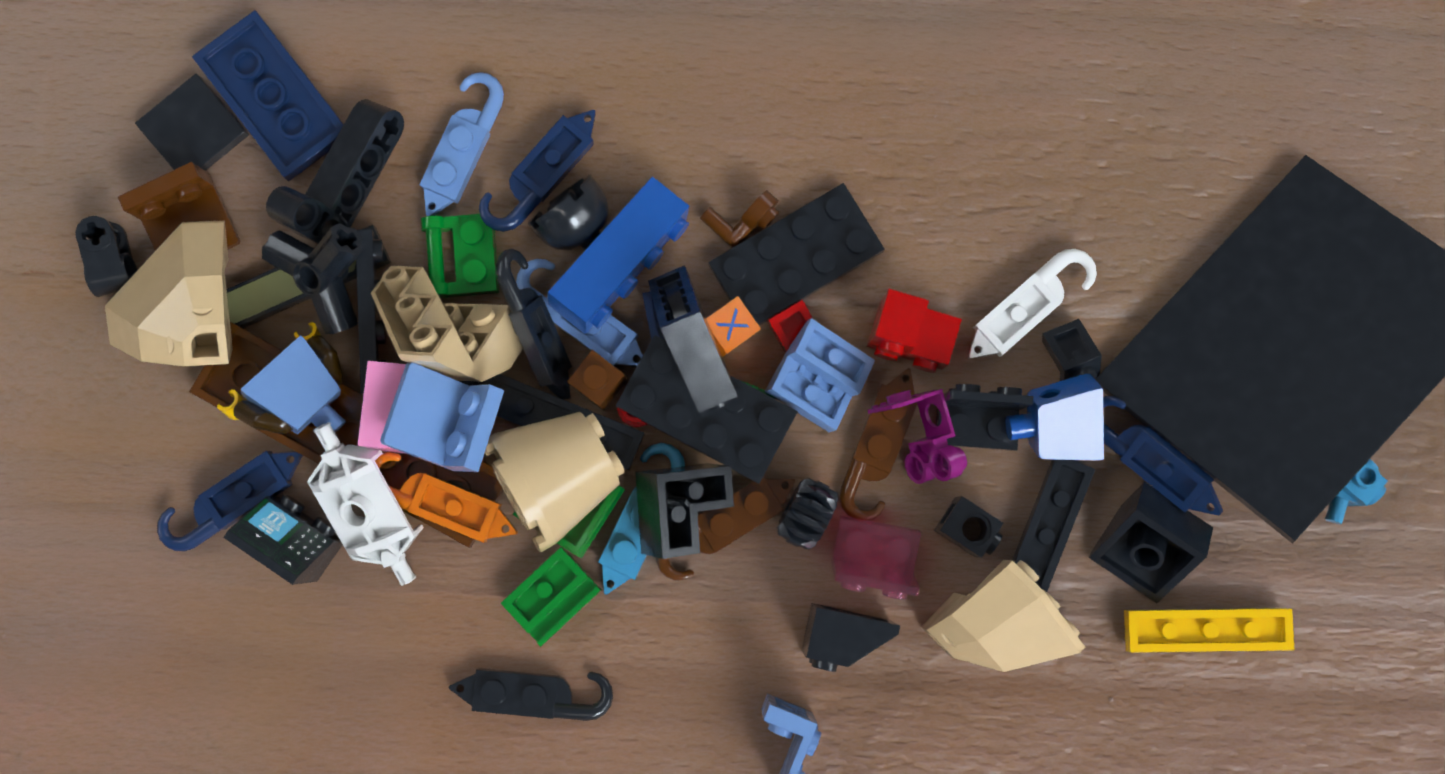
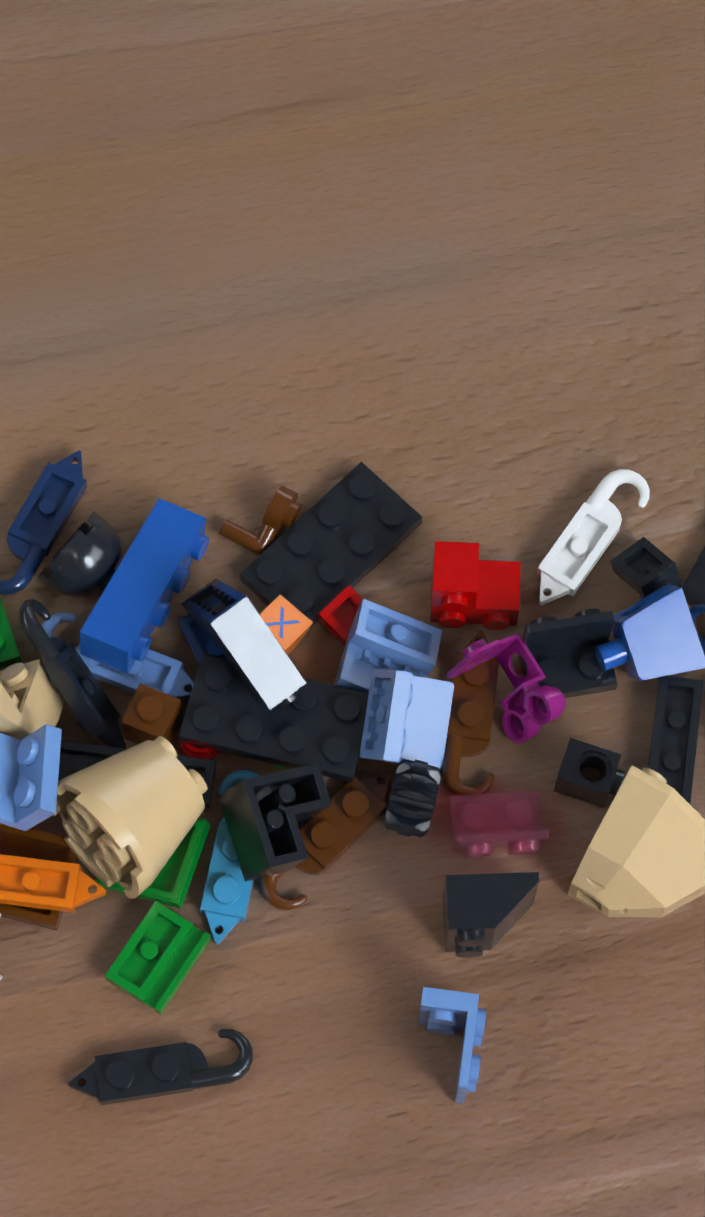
camera: 15 degrees left, 15 degrees down
(819, 442) = (406, 718): none -> bracket

